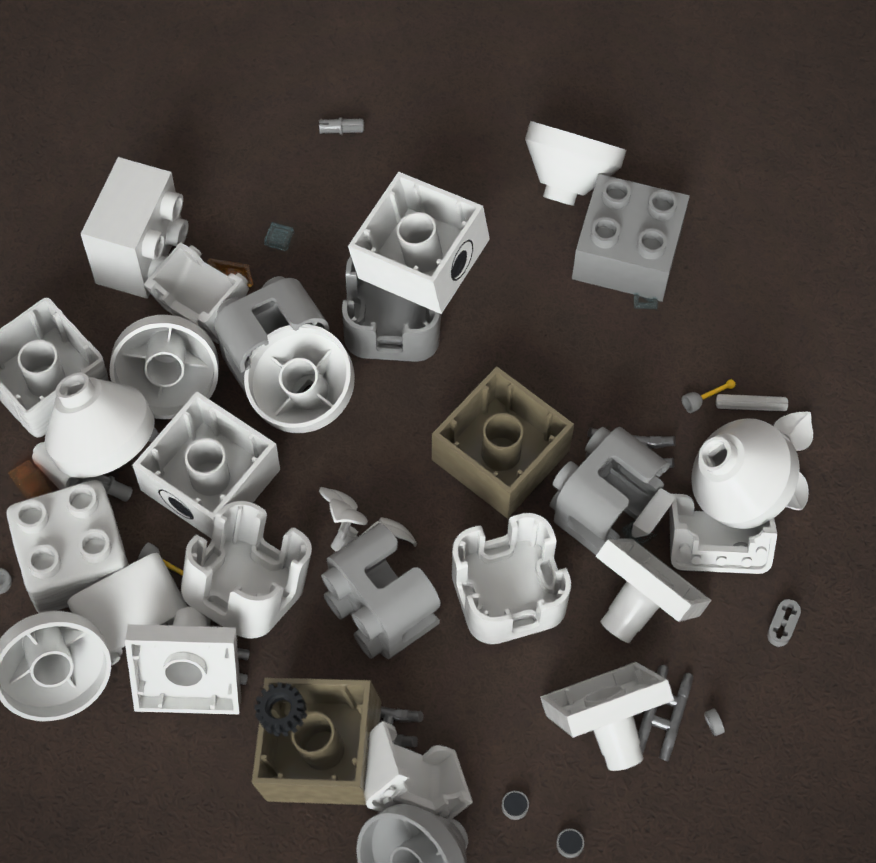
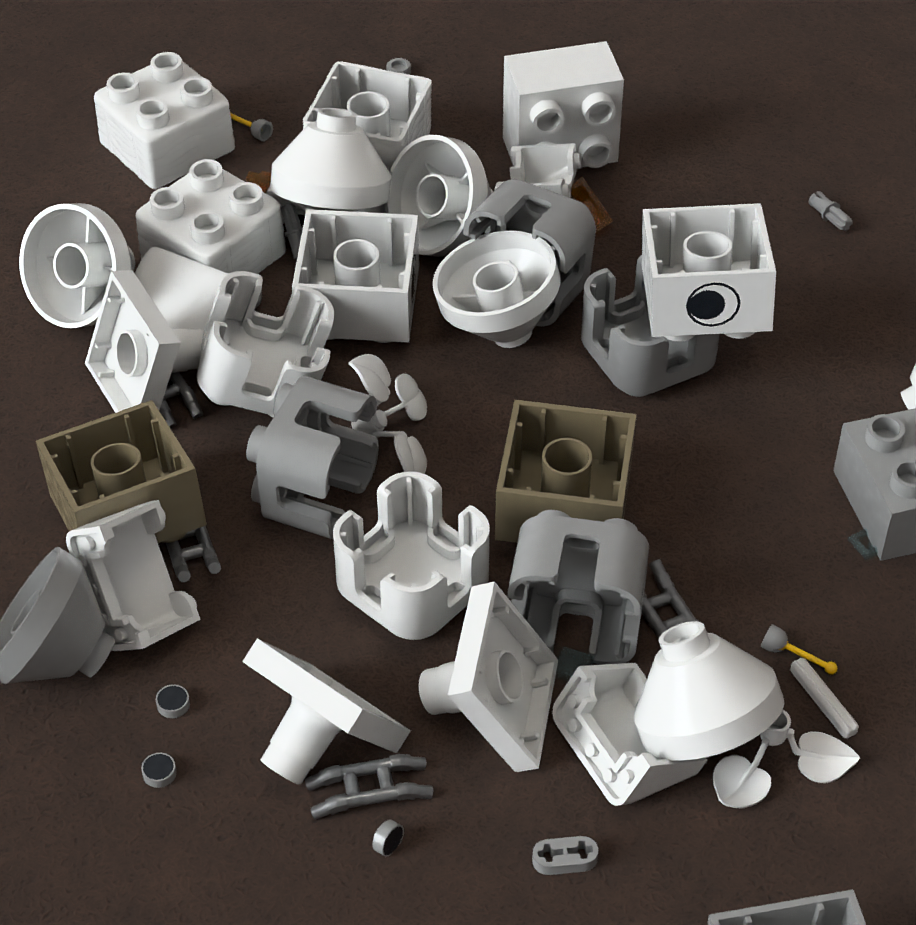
camera: 60 degrees right, 15 degrees down
(284, 724) = (120, 418): black tyre -> none
(652, 513) = (594, 651): white slope -> none

